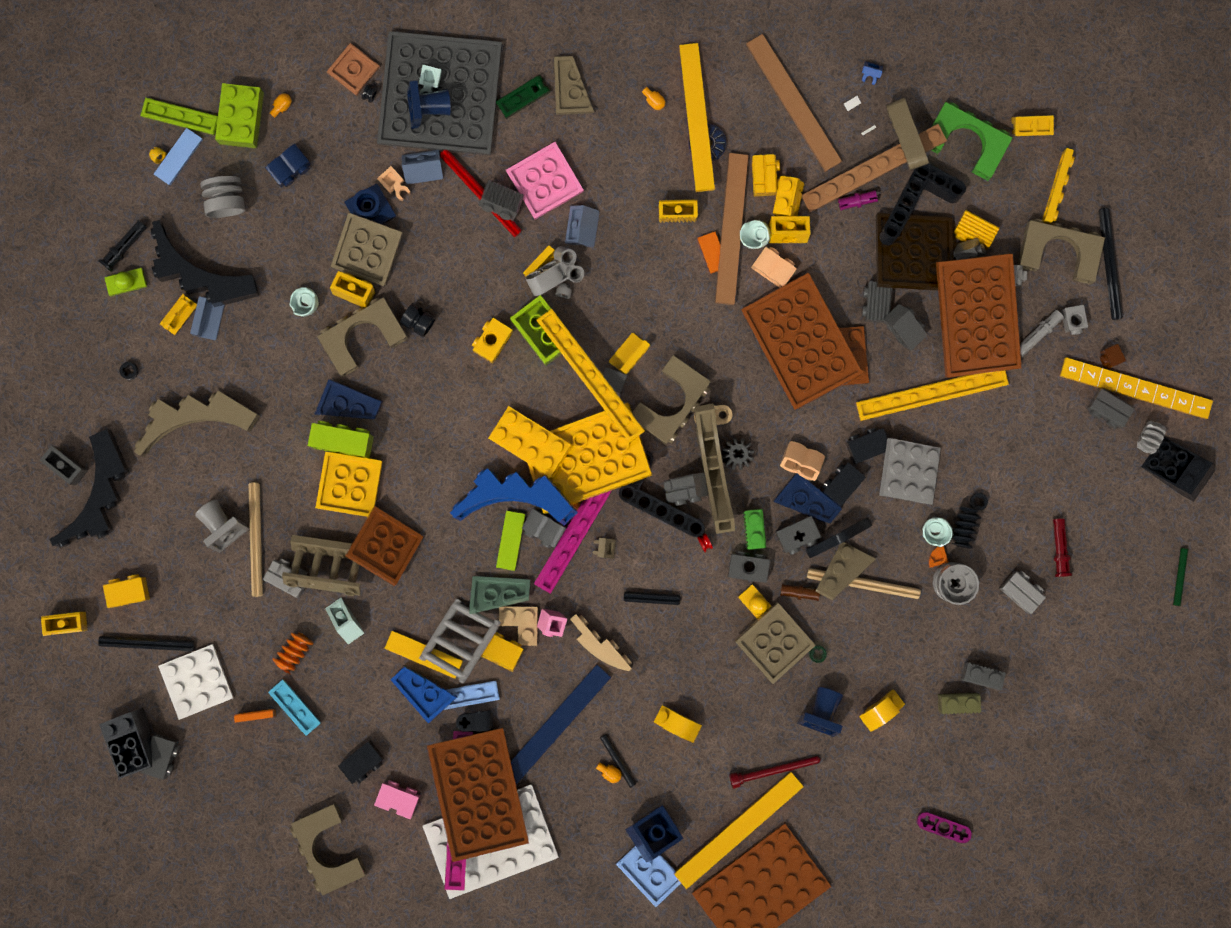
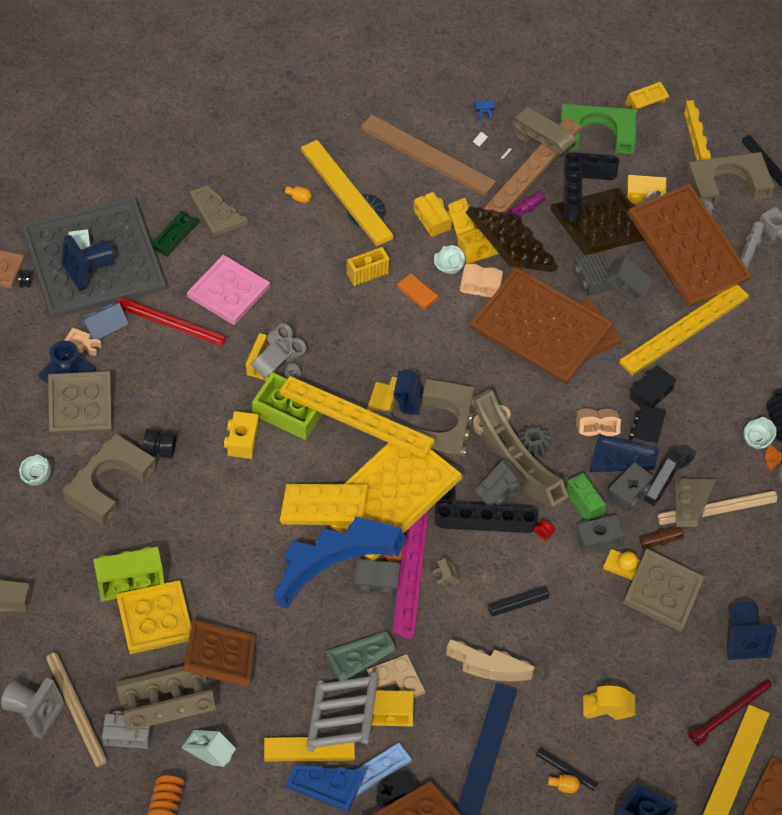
camera: 25 degrees left, 30 degrees down
(347, 402) = (119, 539): dark blue wing -> none
(352, 289) = (80, 439): yellow brick -> none
(500, 200) = (194, 314): dark grey brick -> none
(510, 540) = (348, 605): lime tile -> none
(551, 623) = (430, 658): bright pink brick -> none
(582, 226) = (282, 309): sand blue panel -> none
(651, 362) = (408, 392): none -> dark blue brick
(731, 229) = (425, 267): medium nougat tile -> none
(817, 243) = (512, 239): none -> dark brown plate
(823, 655) = (717, 585): clear green bush -> none
(909, 471) = (703, 393): light grey plate -> none

